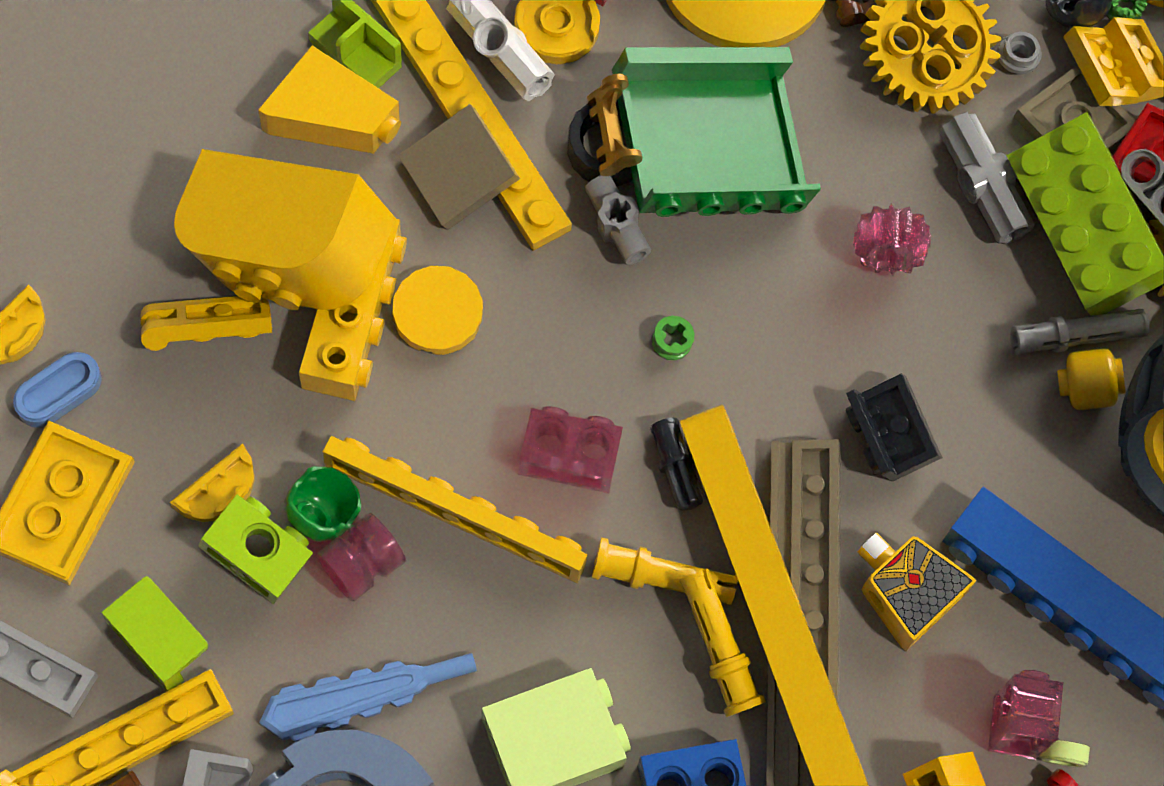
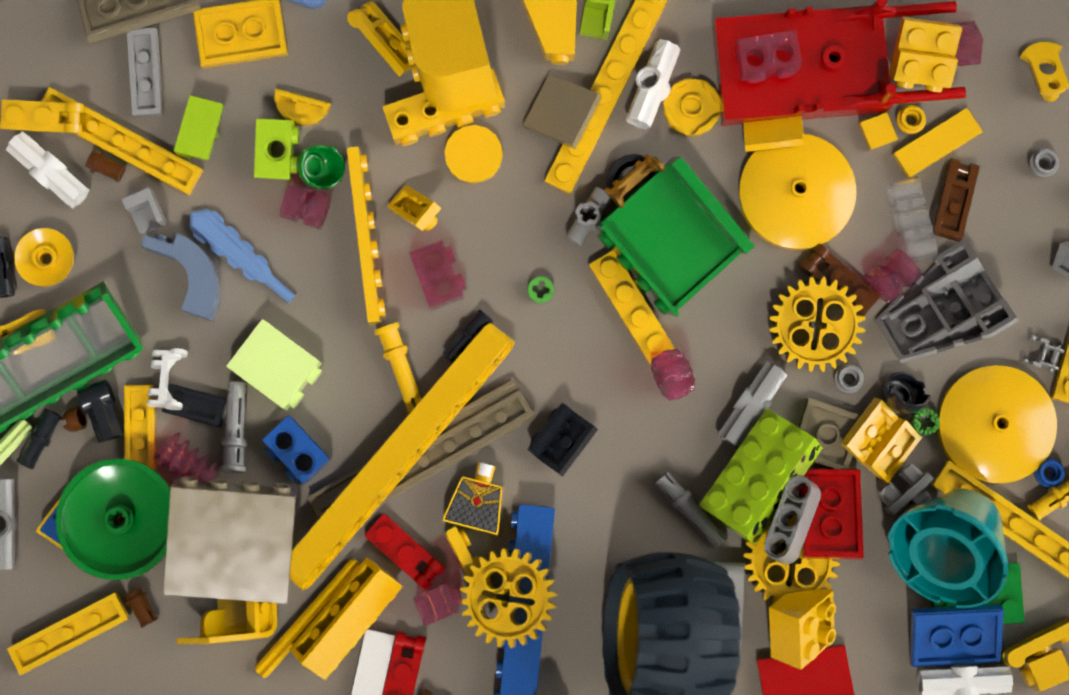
camera: 60 degrees right, 15 degrees up
(462, 418) = (415, 208): none -> yellow tile
(728, 663) = (370, 431): yellow pin -> none
(766, 244) = (630, 306): none -> yellow plate
(918, 726) = (404, 551): none -> red plate
(991, 648) = (459, 542): none -> yellow hinge
(1067, 754) = (436, 636): yellowish green tile -> none
(1092, 379) = (663, 532): yellow head -> none
(1108, 640) = (504, 625): none -> yellow gear

